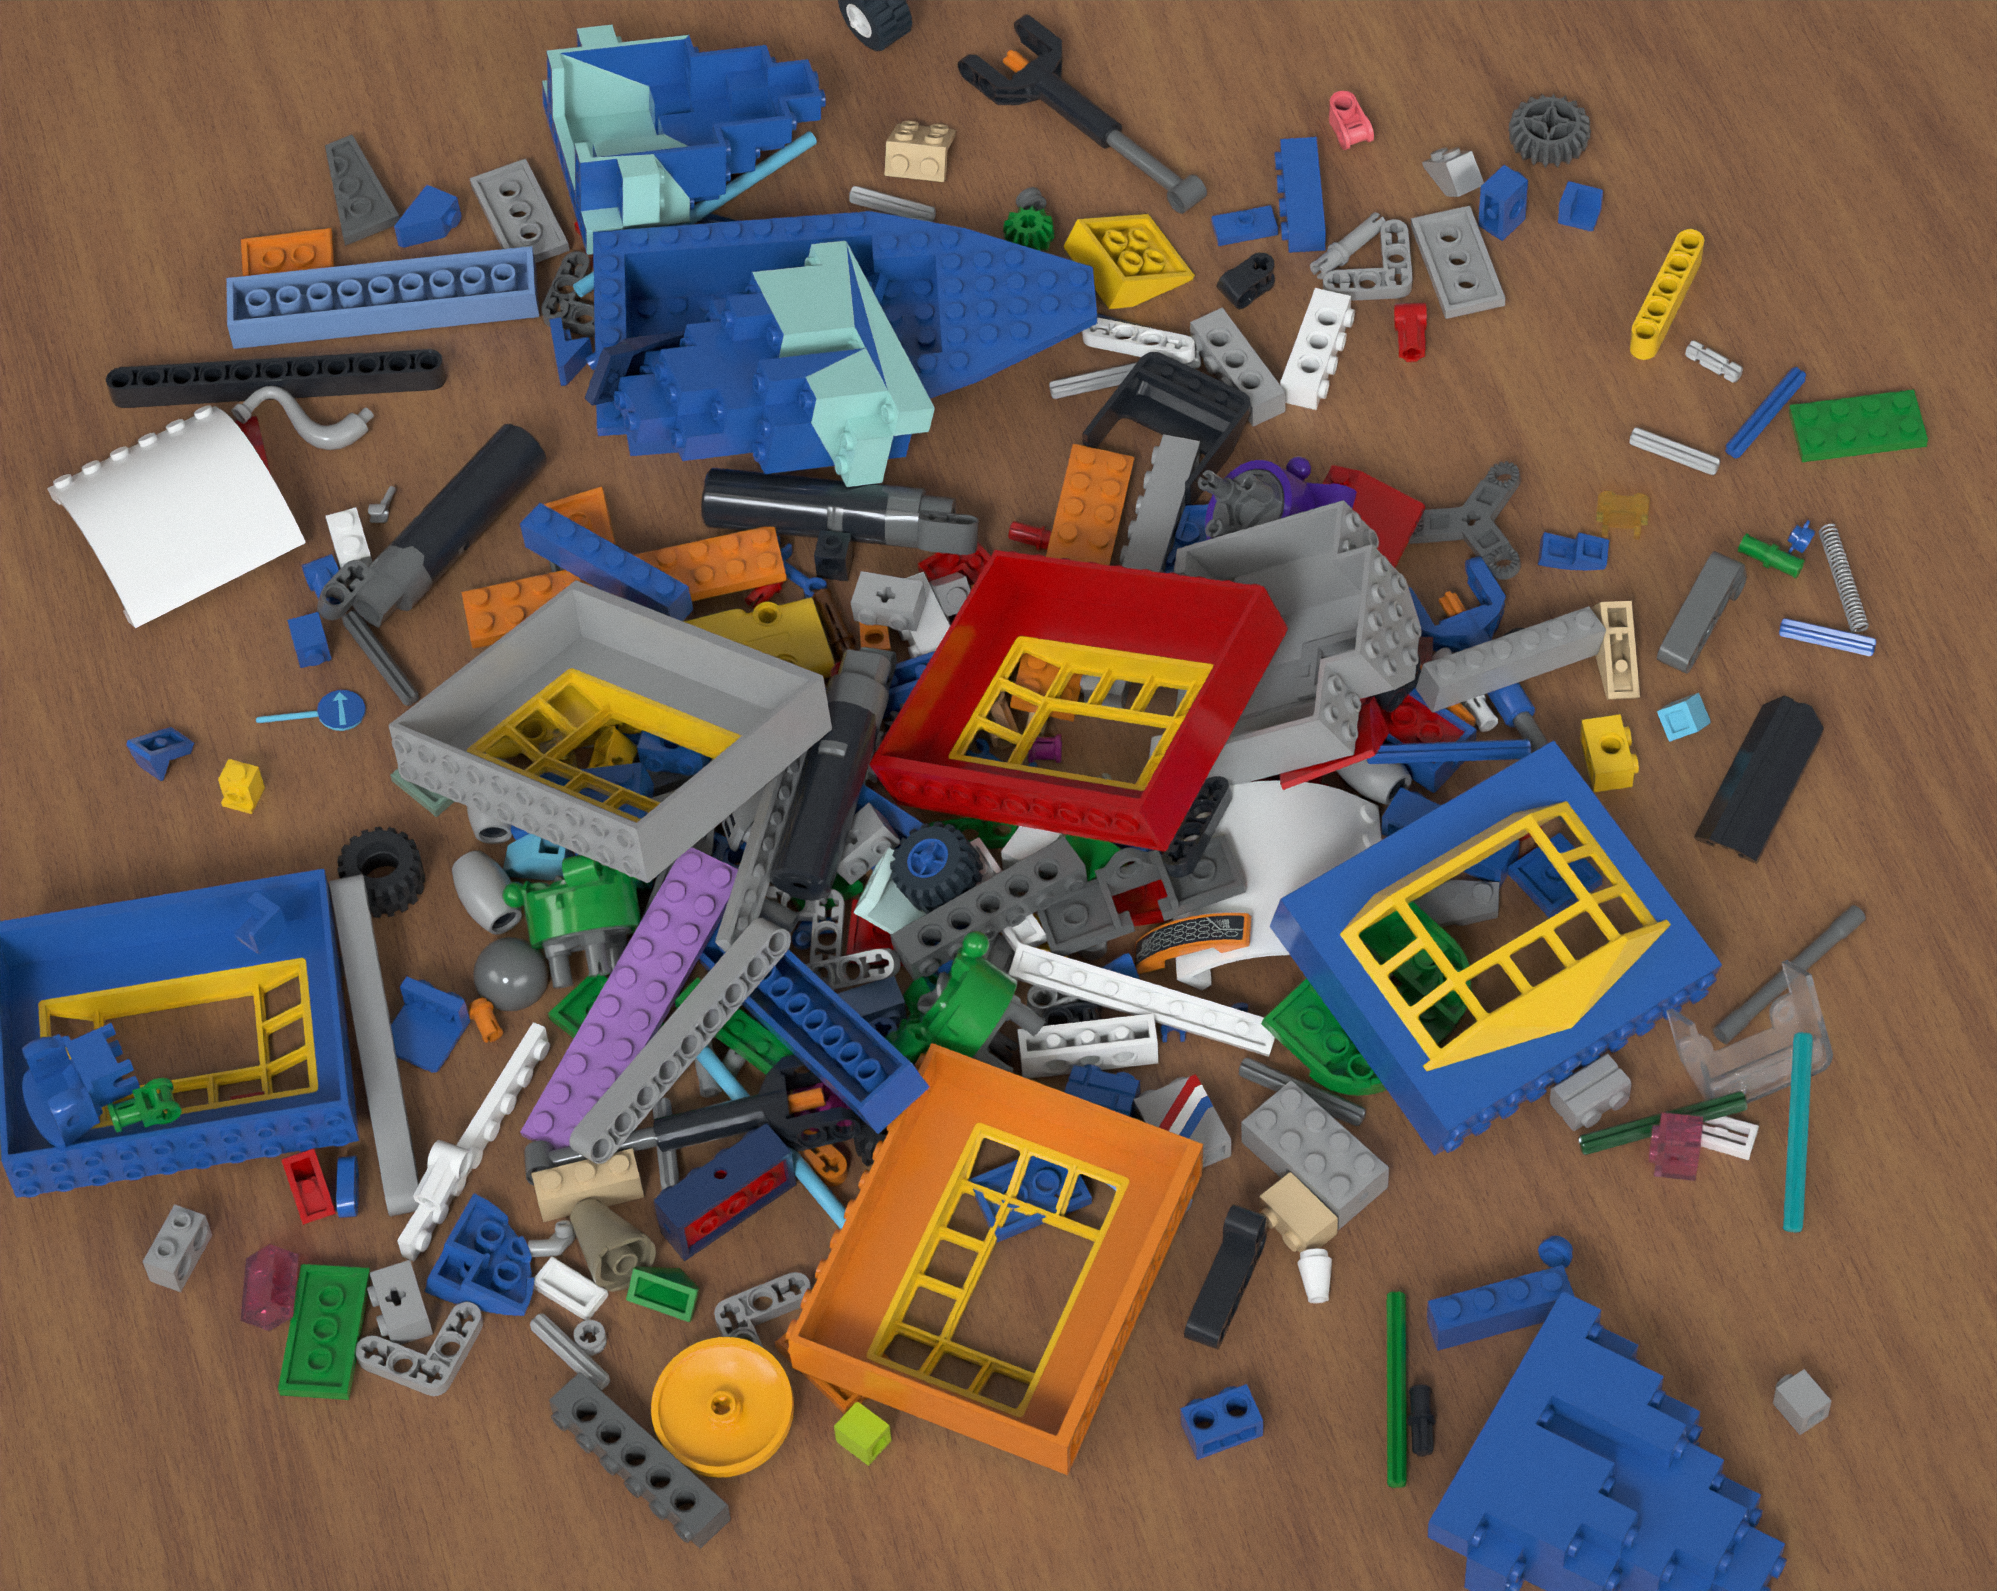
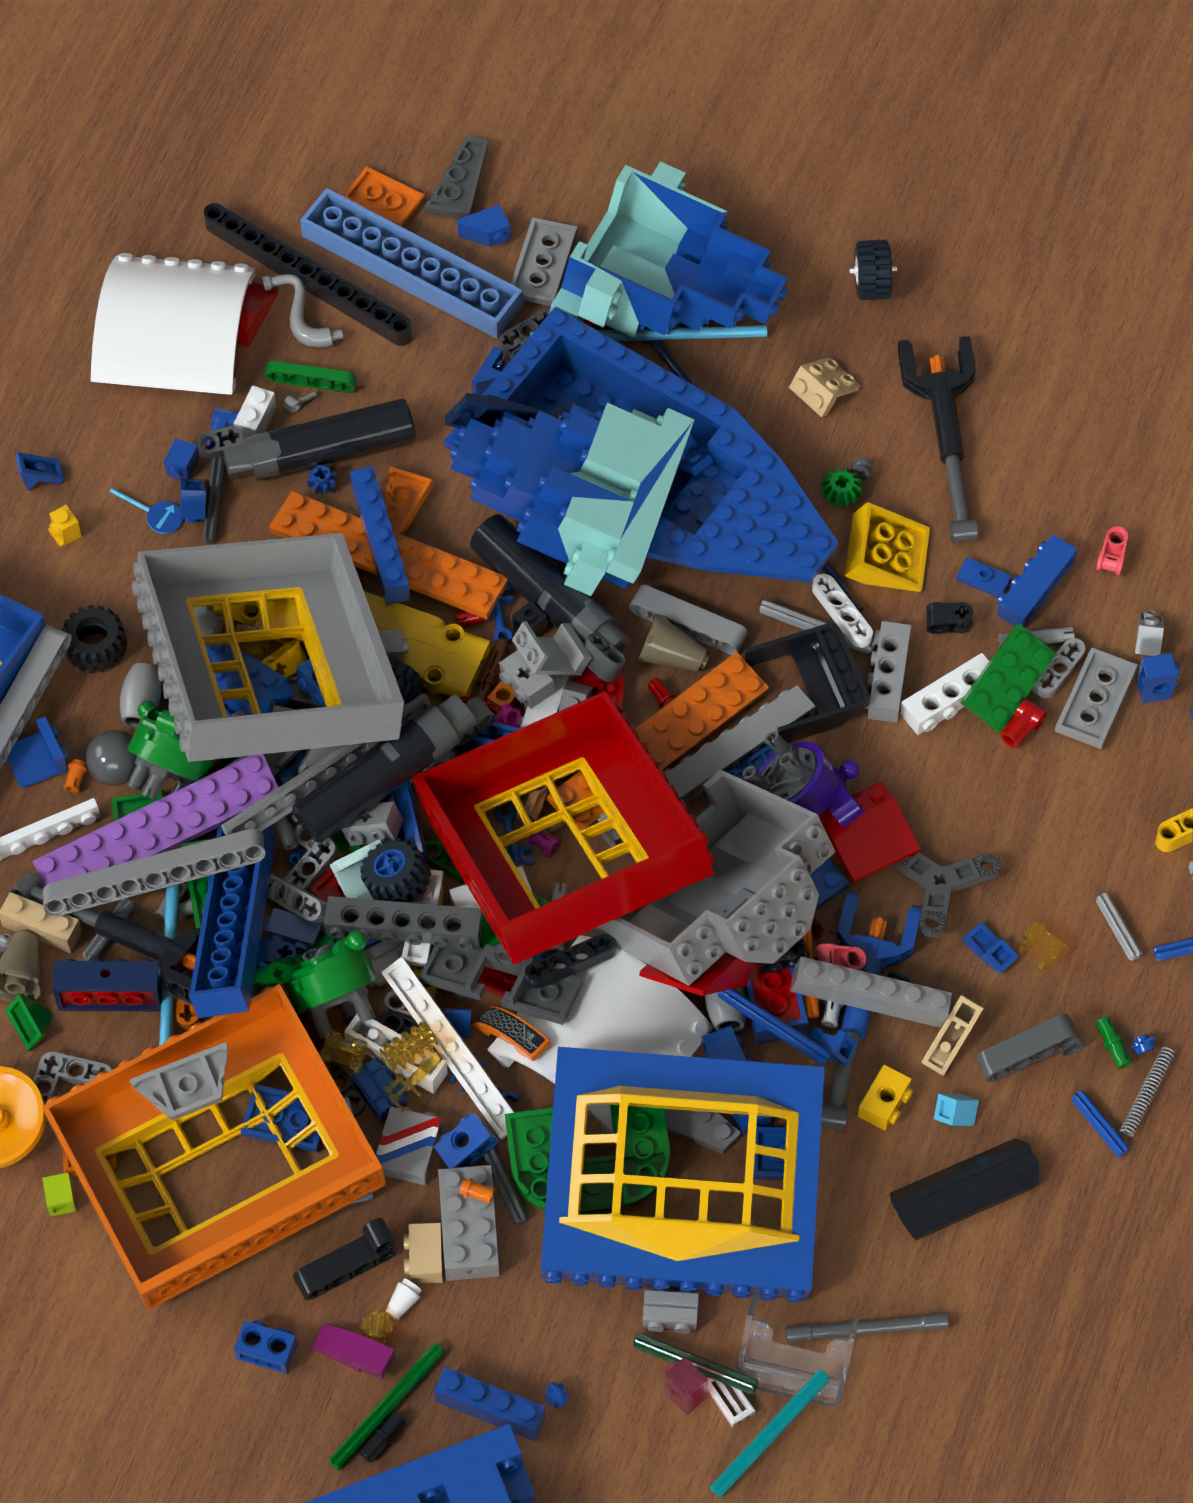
camera: 35 degrees right, 5 degrees up
(360, 669) = (192, 500): none -> blue slope
(405, 461) = (310, 376): none -> green beam
(481, 562) = (322, 479): none -> blue gear
(891, 204) = (775, 411): light grey axle -> none
(898, 557) = (552, 656): none -> light grey panel
(904, 649) = (513, 715): none -> dark pink plate
(926, 1205) = (186, 1083): none -> light grey wing
(991, 449) = (692, 620): none -> light grey beam
(1000, 483) = (672, 647): none -> dark tan cone
(1050, 1071) = (343, 1050): none -> clear yellow piece
(1109, 1021) = (408, 1046): none -> clear yellow piece
(1137, 1055) = (415, 1078): none -> clear yellow piece
(1238, 1059) = (480, 1142): none -> blue brick
(1305, 1109) = (476, 1190): none -> orange pin
(1315, 1358) = (354, 1350): none -> magenta slope
(1317, 1318) = (377, 1326): none -> clear yellow gear
(1362, 294) = (1008, 678): none -> green plate
(1450, 643) = (839, 955): none -> coral piece
(1526, 727) = (839, 1046): none -> blue leg

